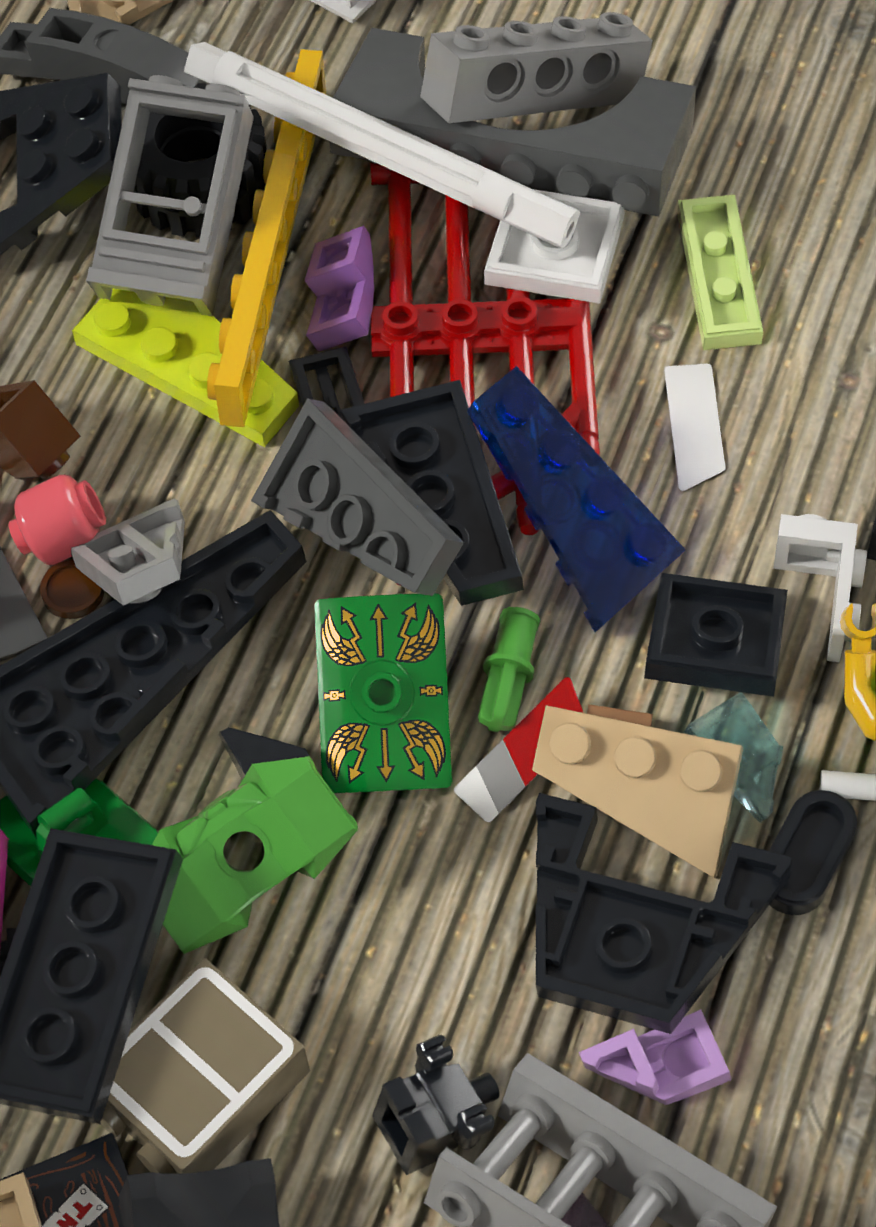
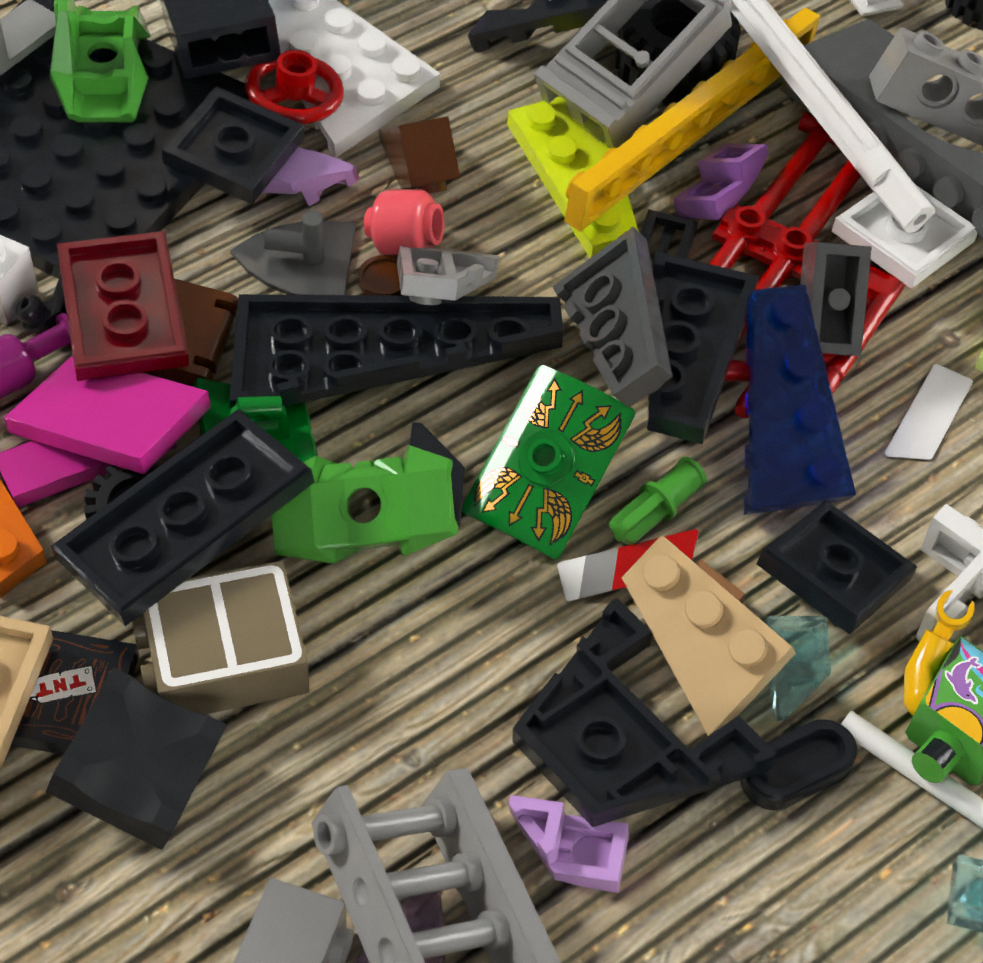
camera: 25 degrees right, 5 degrees down
(434, 1108) = (376, 764): black piece -> none
(543, 345) = (837, 293): none -> dark grey slope

